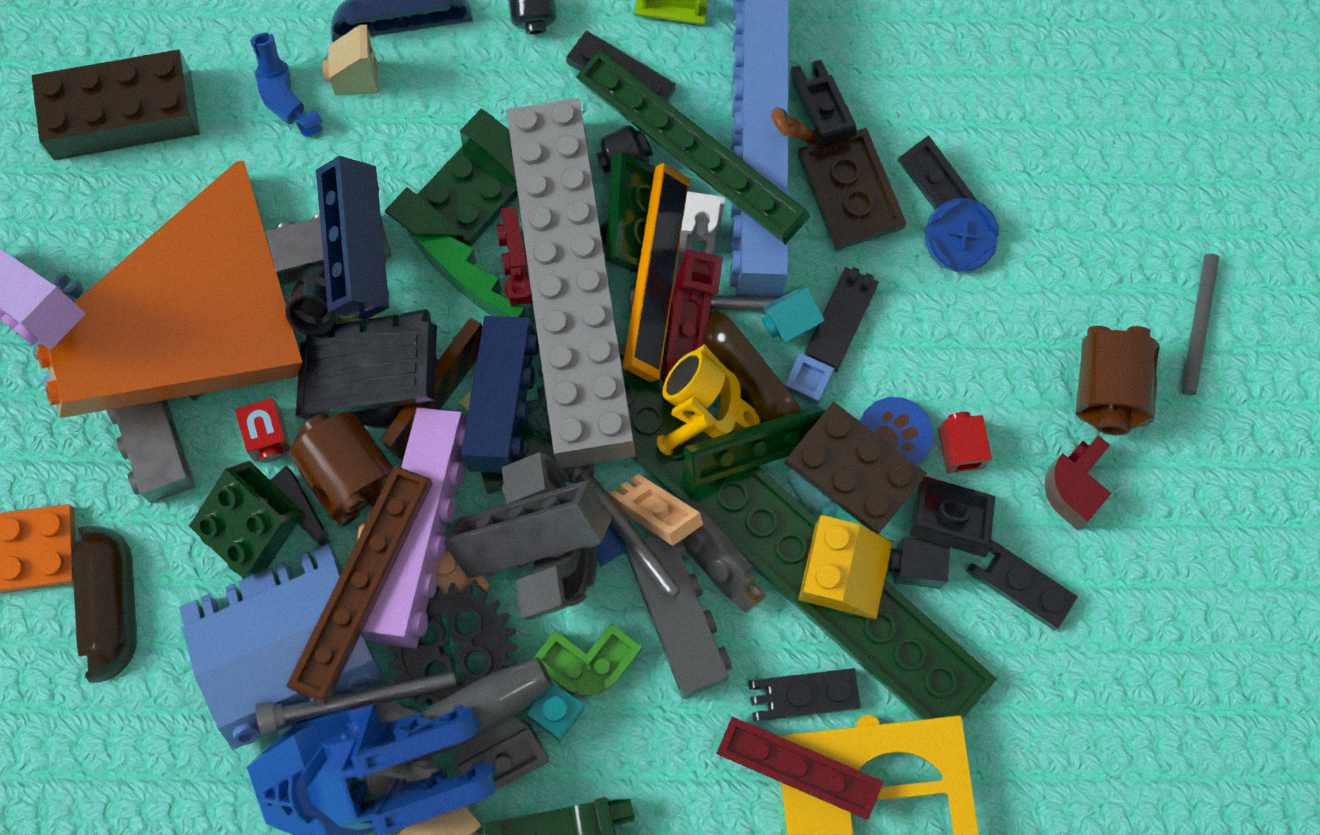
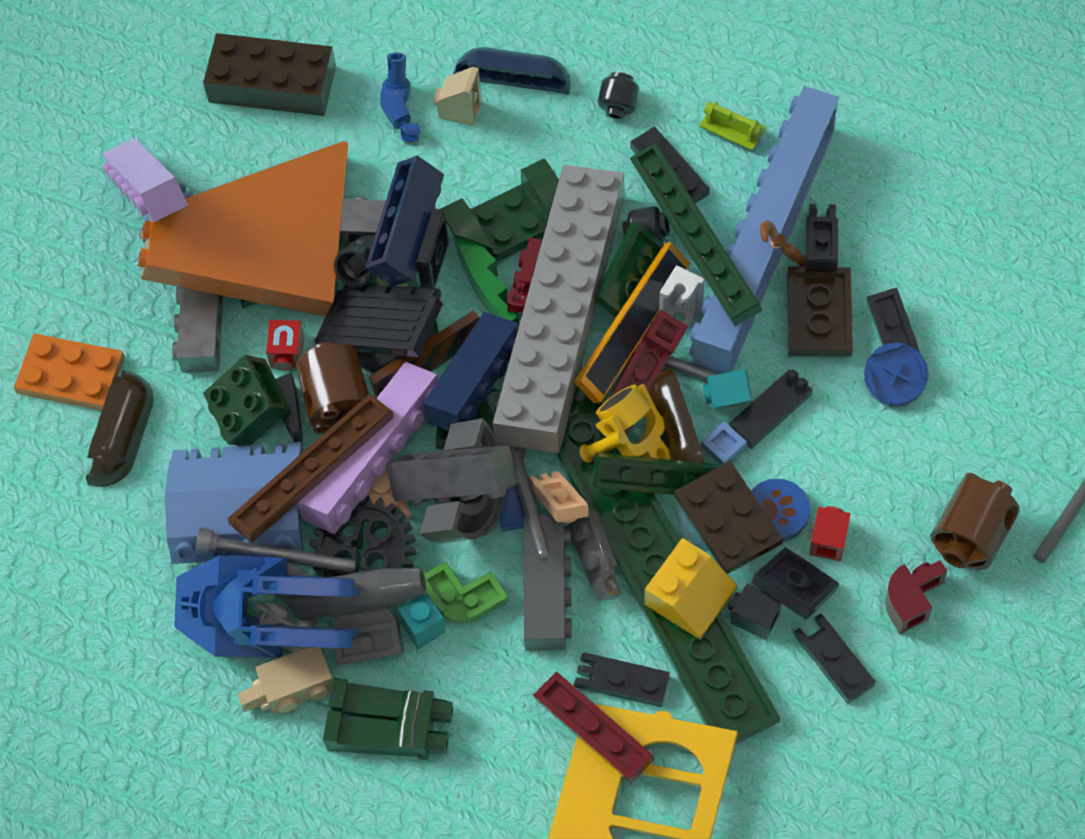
camera: 30 degrees right, 10 degrees down
(395, 261) = (433, 249): none -> black tile

